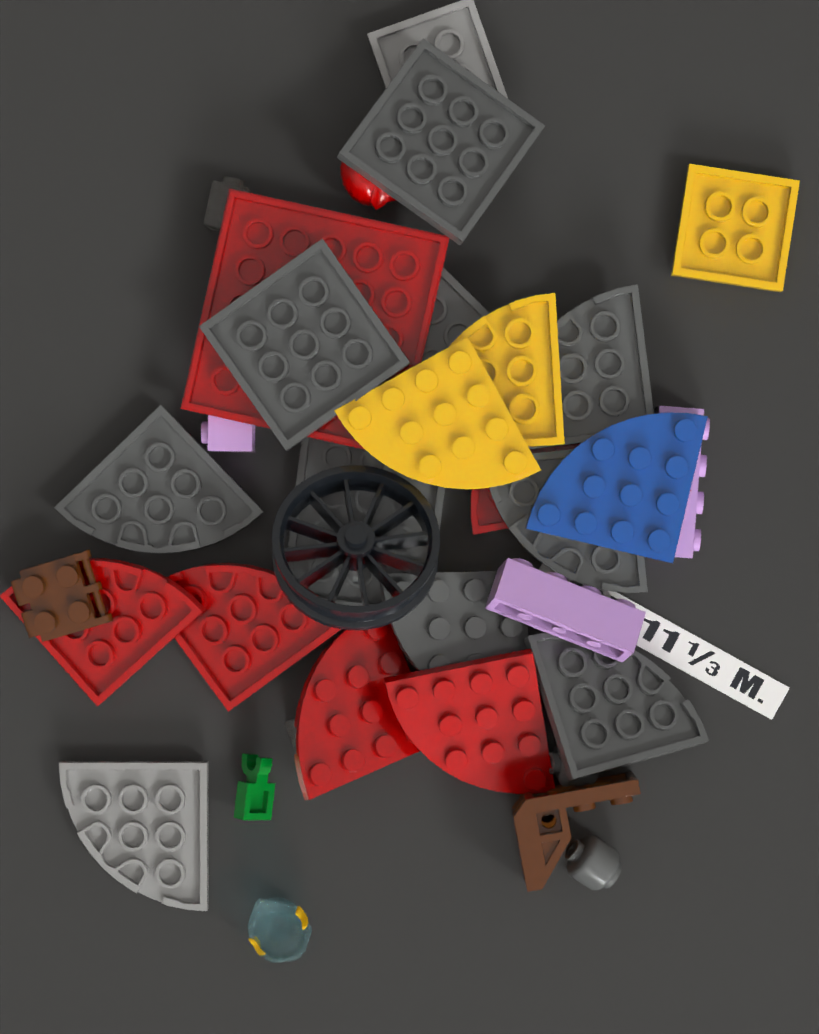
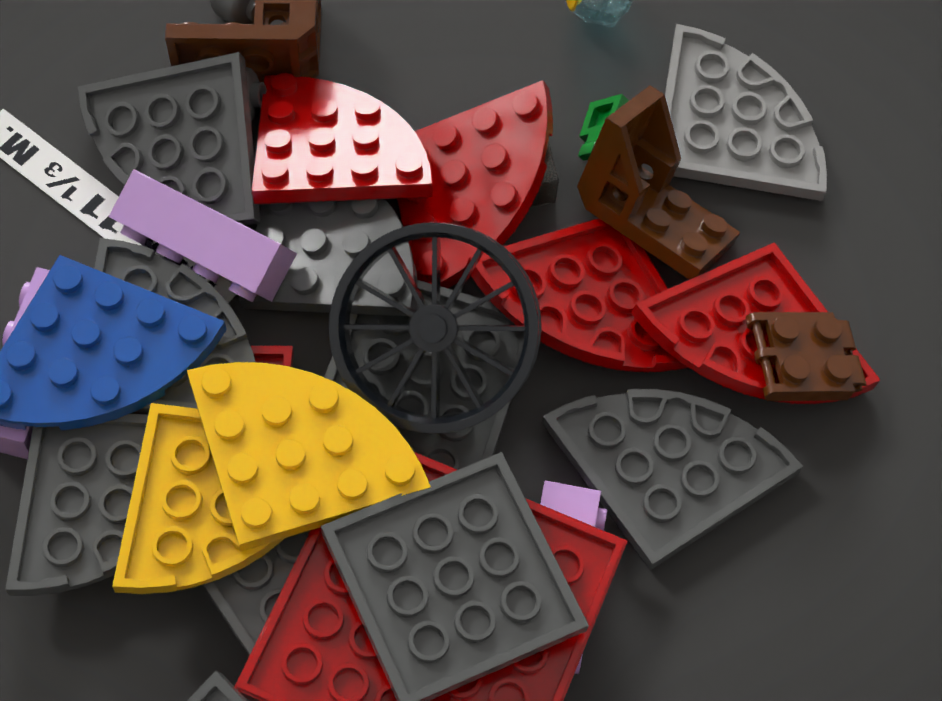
camera: 175 degrees left, 25 degrees down
(203, 716) = (644, 203): none -> reddish brown bracket

